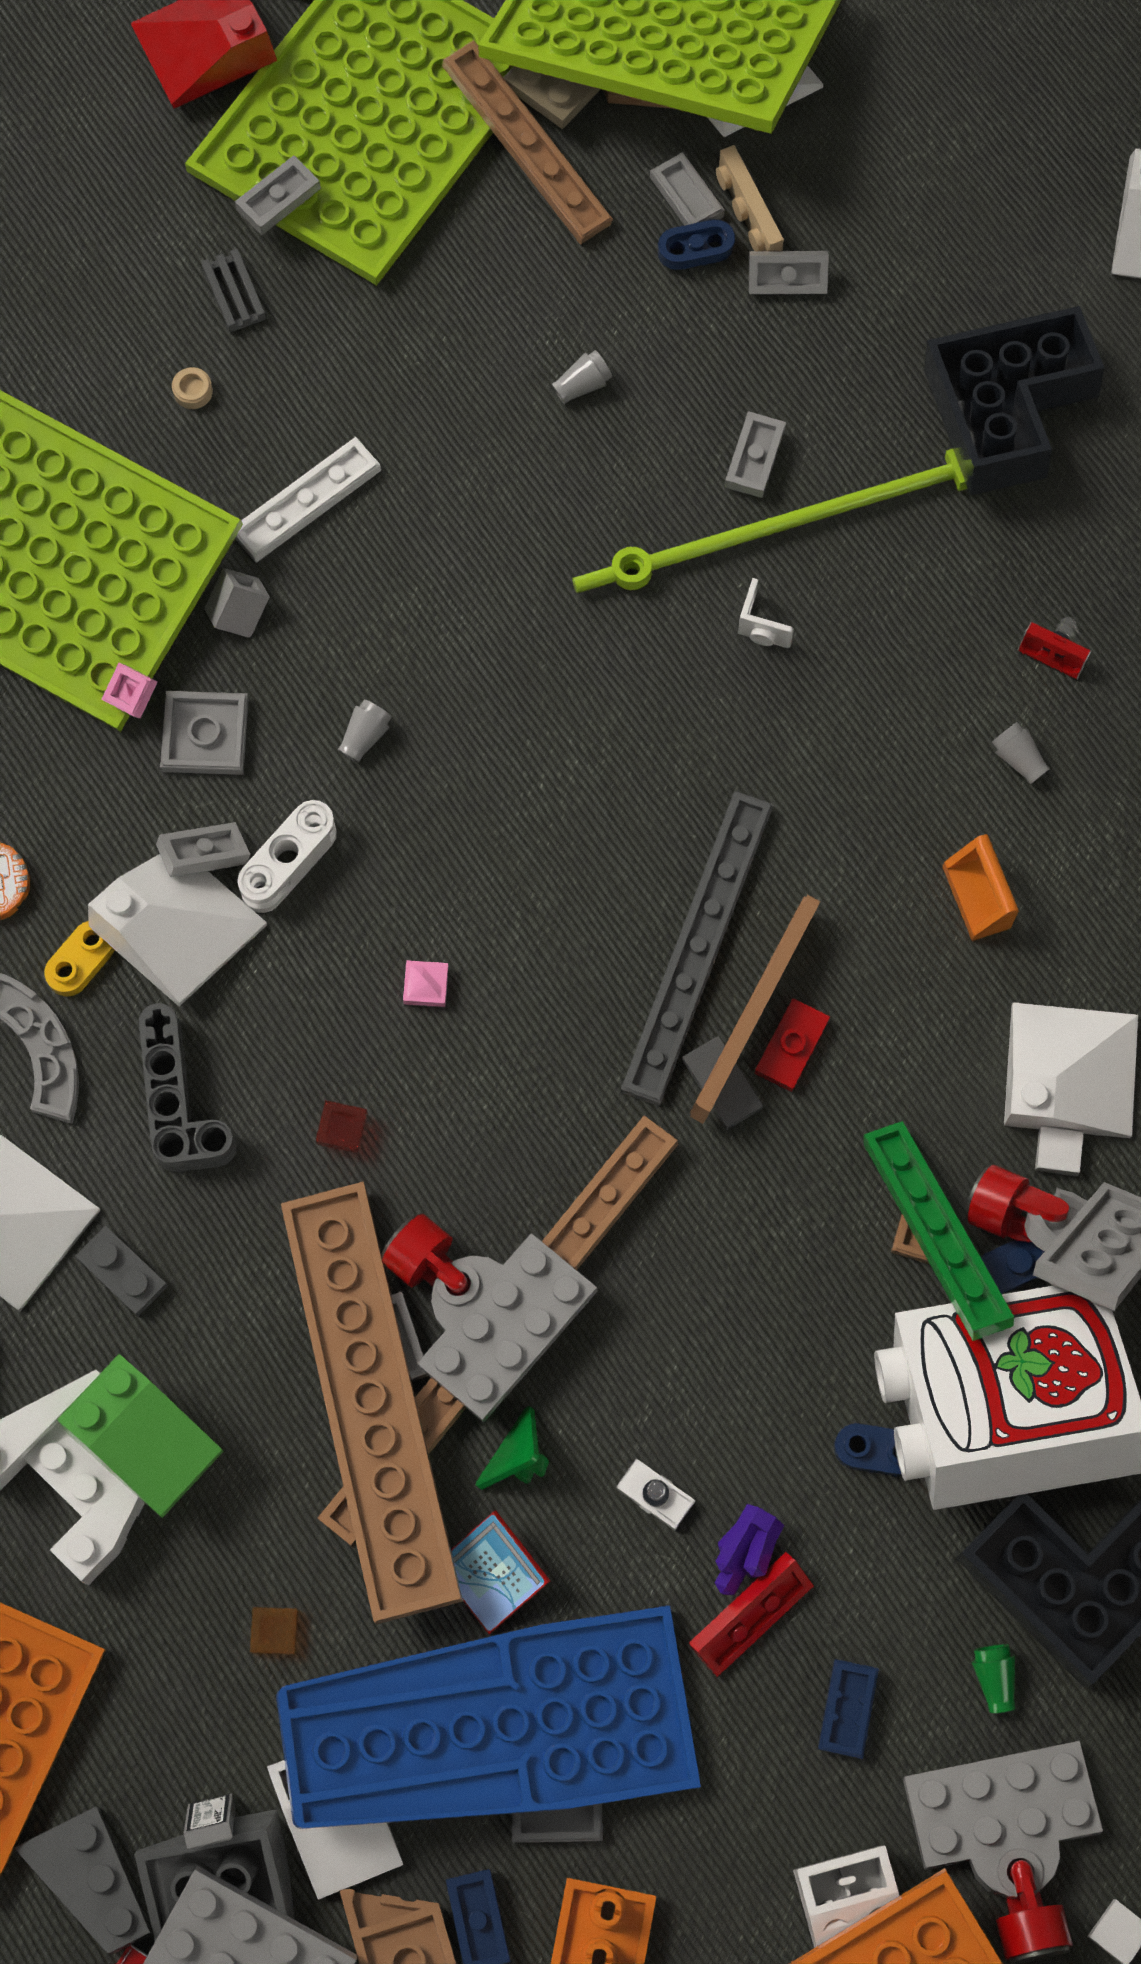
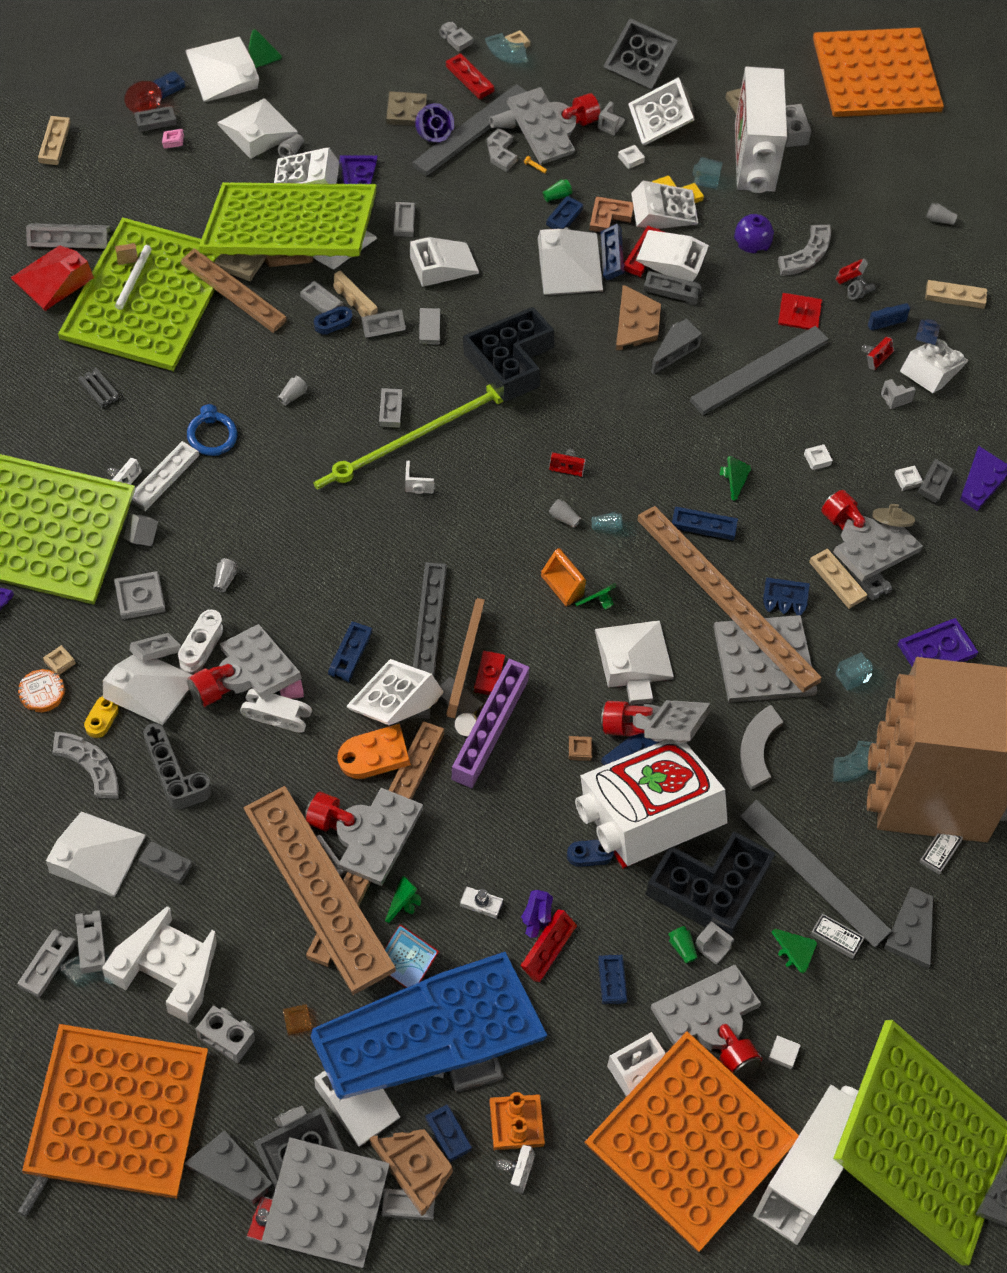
camera: 20 degrees left, 15 degrees down
(33, 829) = (59, 660): none -> tan tile
(129, 690) = (96, 579): bright pink tile -> none
(135, 1636) = (221, 1038): none -> light grey brick
(139, 1435) = (199, 929): bright green slope -> none
(192, 388) = (89, 436): tan tile -> none
(235, 484) = (126, 474): none -> white piece
(277, 195) = (111, 337): light grey plate -> none
(341, 1126) = (265, 764): clear red plate -> none
(346, 25) = (126, 253): none -> medium nougat tile
(348, 75) = (133, 277): none -> white bar
(364, 929) = (250, 662): none -> light grey plate
(386, 1026) = (276, 711): none -> white piece
(418, 394) = (209, 415): none -> blue piece
(543, 1155) = (374, 753): none -> orange plate
(551, 939) = (350, 651): none -> dark blue plate
(605, 1053) = (396, 693): none -> white slope
(722, 1139) = (465, 723): none -> white tile
(764, 1152) = (490, 723): none -> medium lavender brick
(874, 295) = (429, 326): none -> light grey tile
(888, 53) = (404, 219): none -> light grey tile
(935, 161) = (441, 260): none -> white slope
(938, 1231) = (590, 734): green plate -> none
(1045, 938) = (603, 595): none -> green piece
(1052, 1690) = (714, 943): none -> light grey panel
(1099, 790) = (608, 522): none -> clear light blue cone

